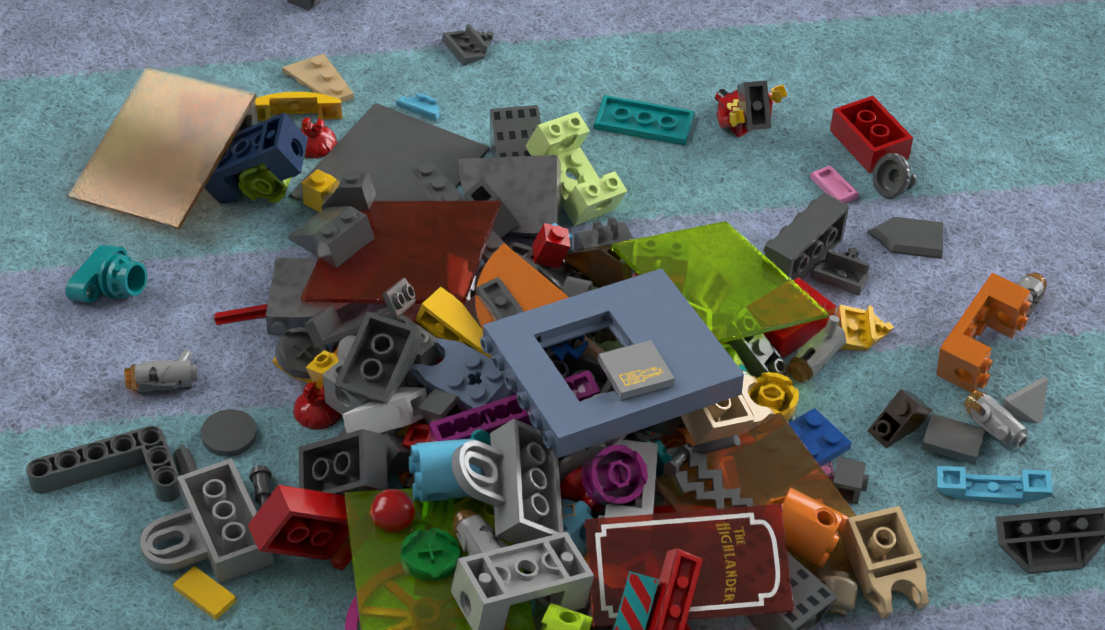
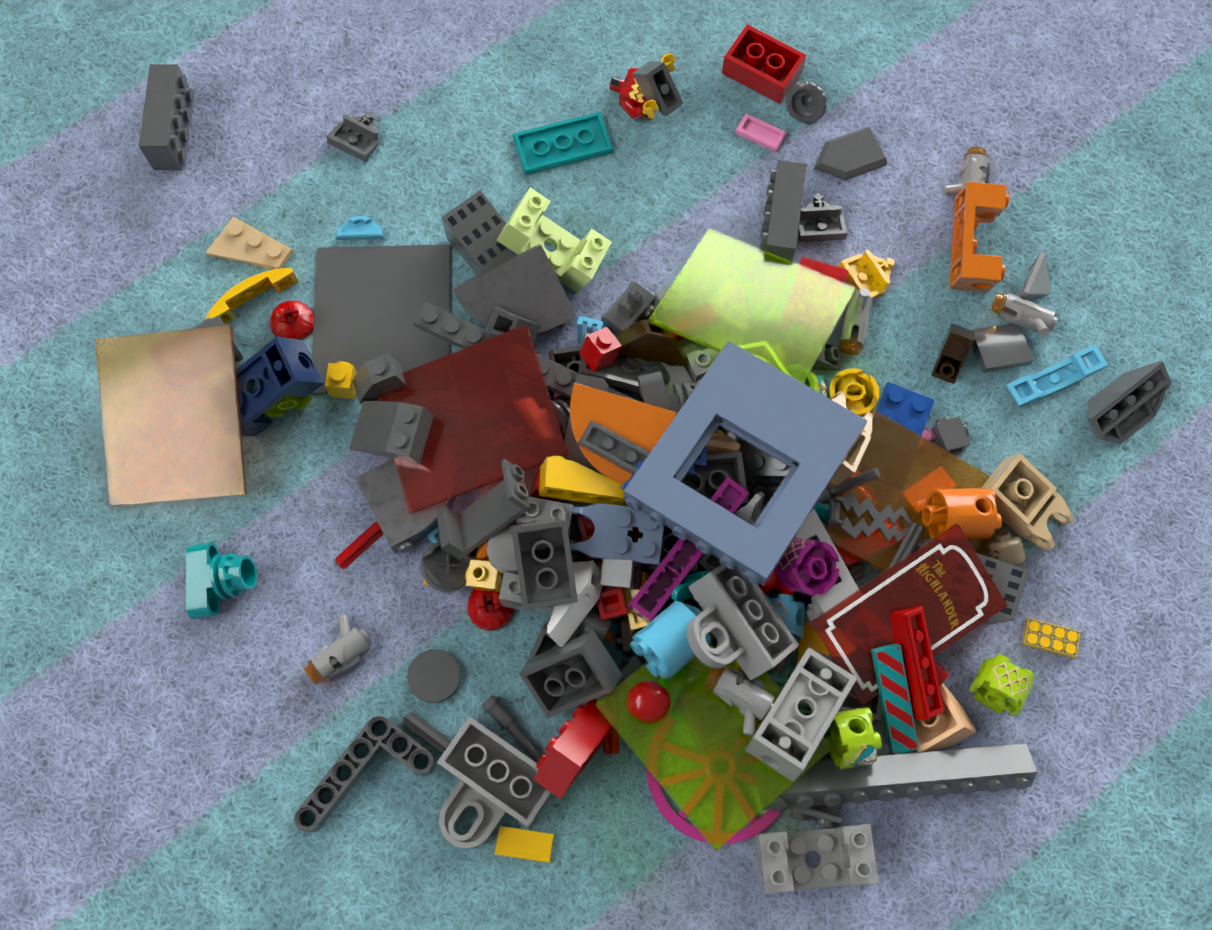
camera: 30 degrees left, 25 degrees up
(430, 554) = (705, 724): green tile -> none
(636, 369) = (783, 469): light grey tile -> none

